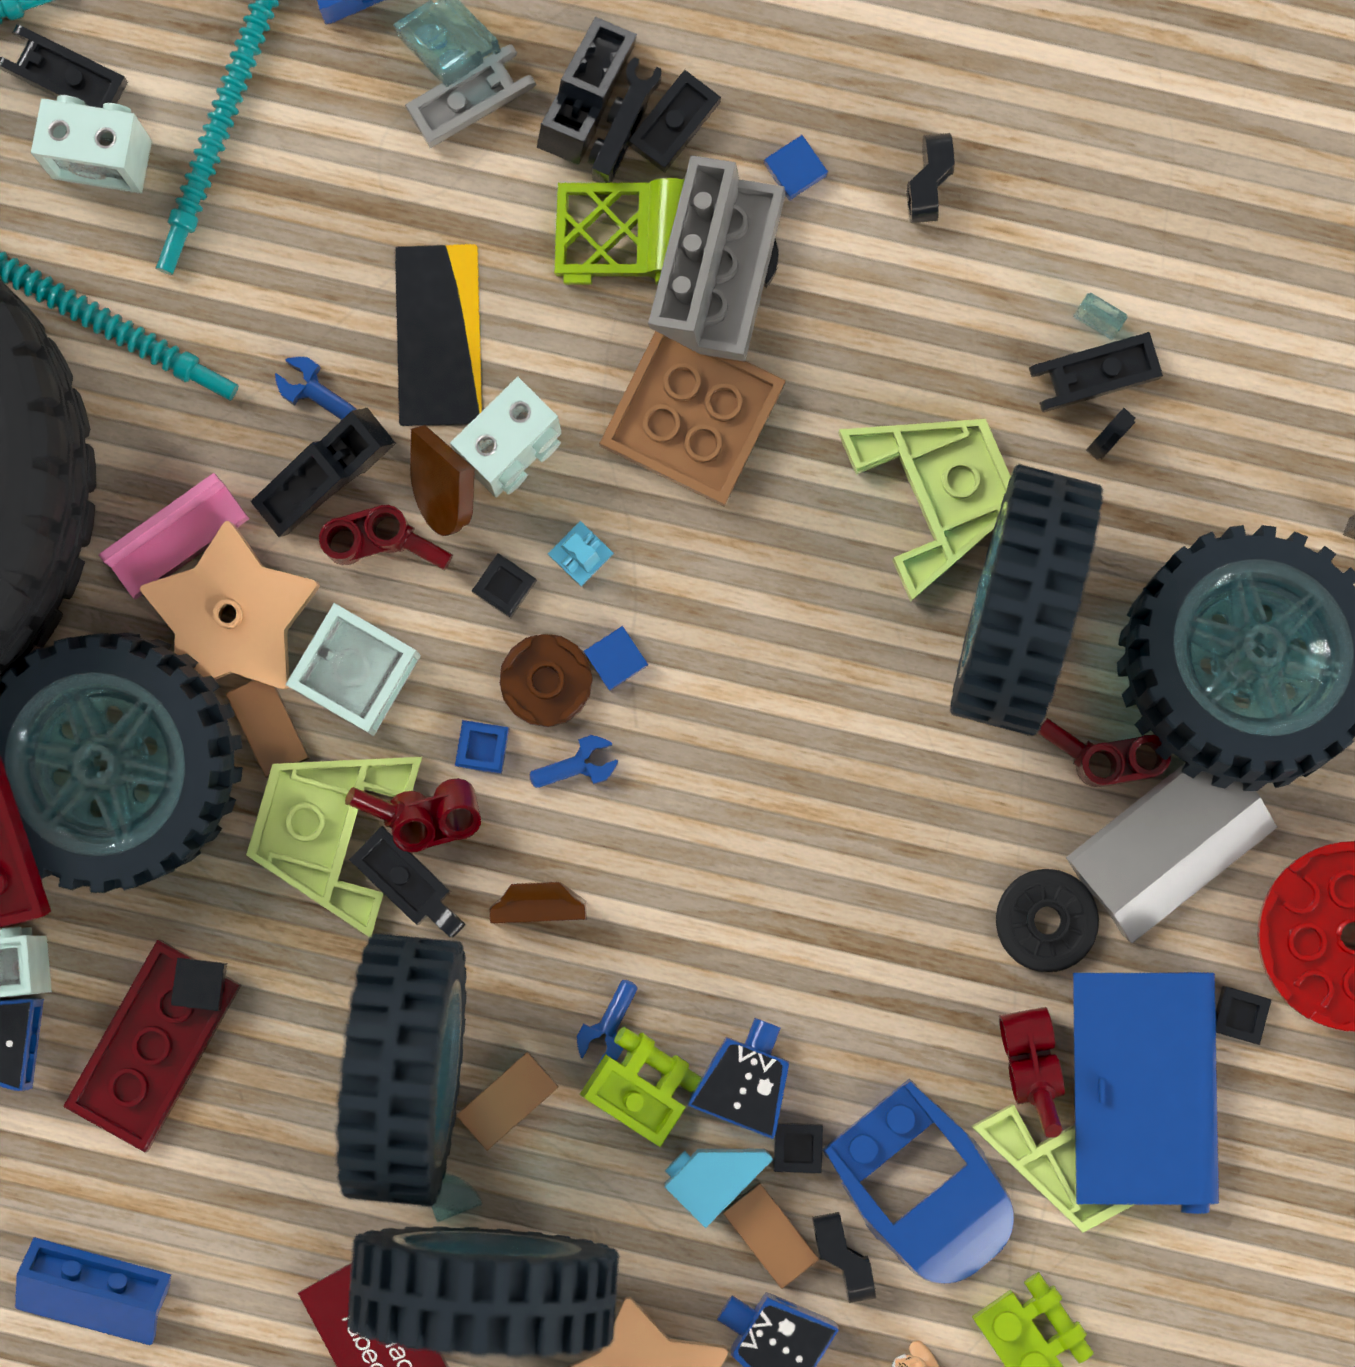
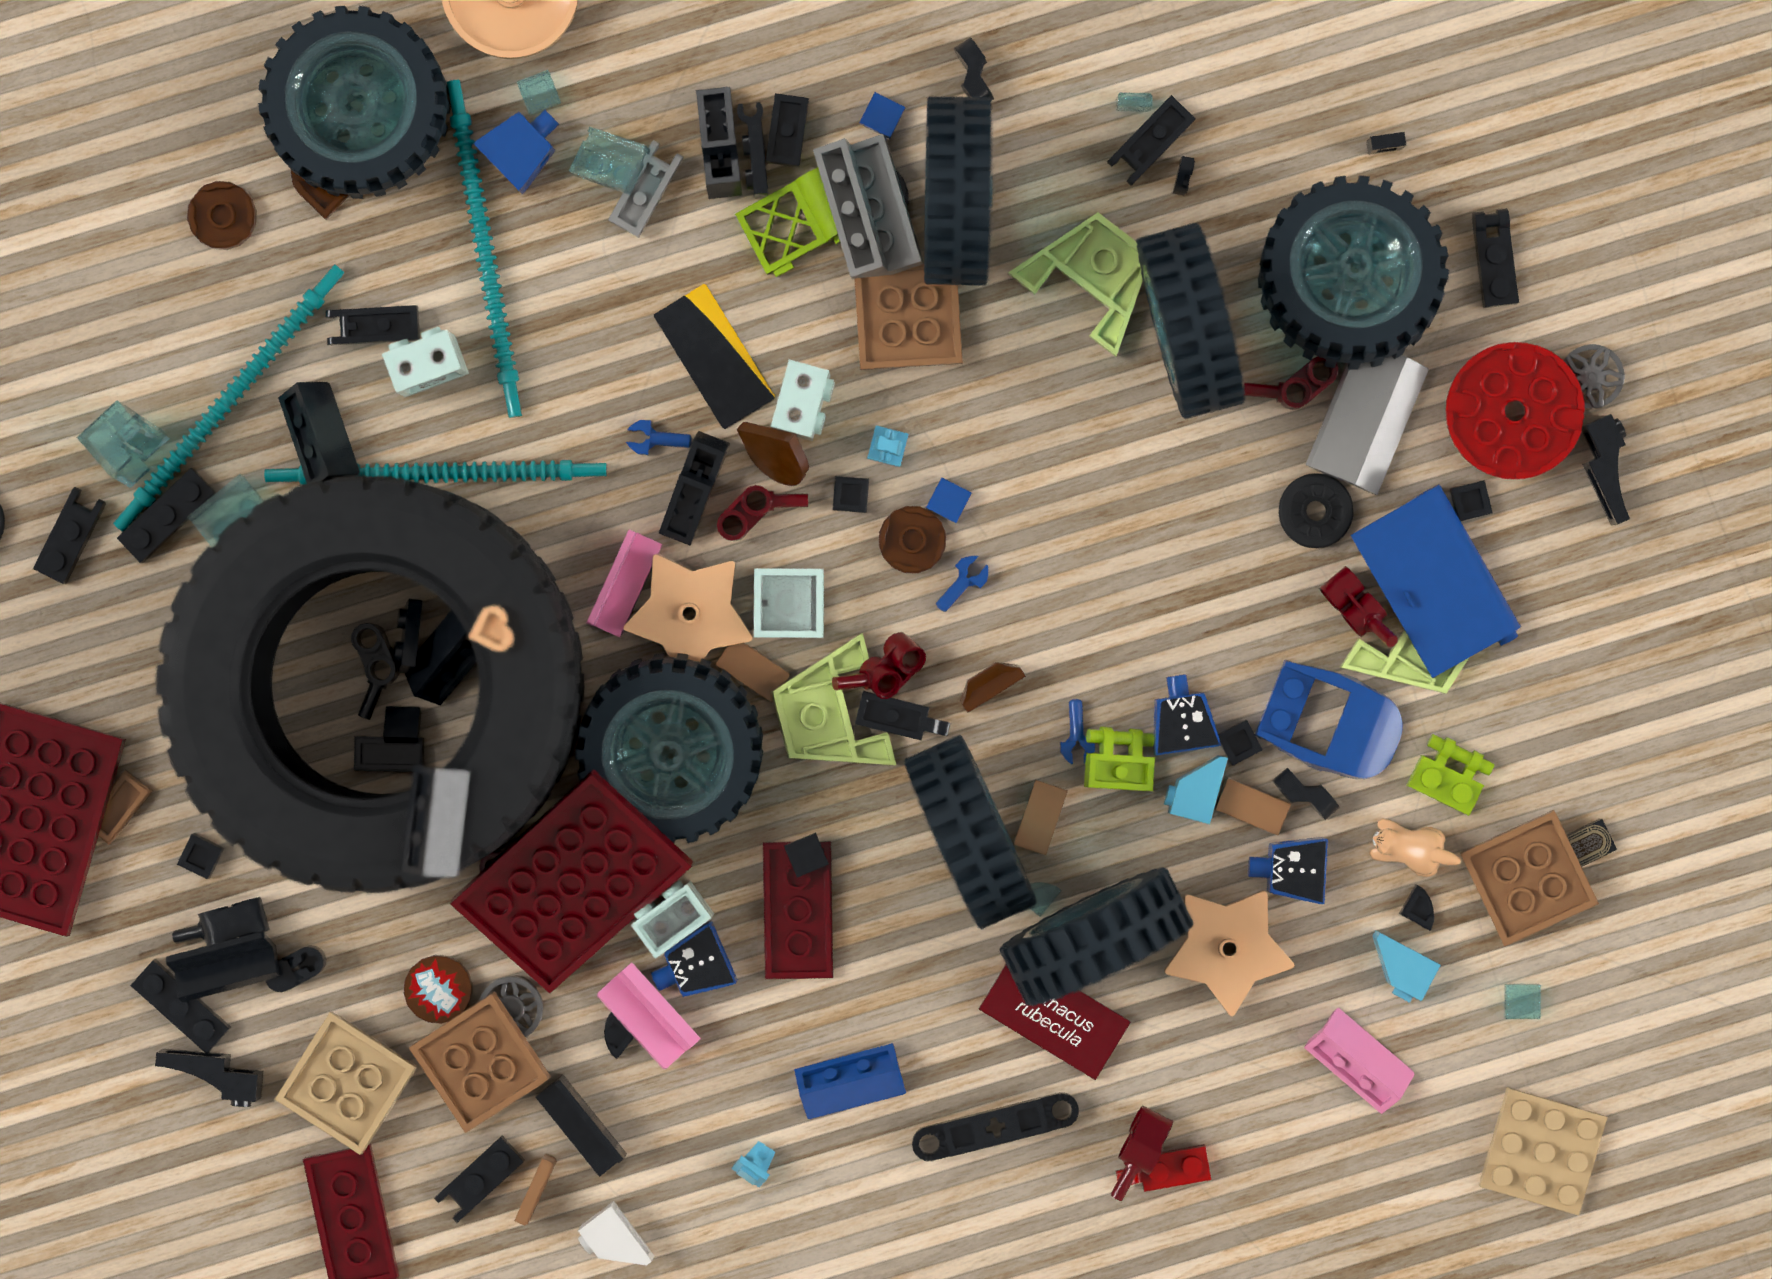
camera: 30 degrees left, 5 degrees up
(482, 747) = (896, 605): blue tile -> none
(831, 286) = (958, 190): none -> black wheel

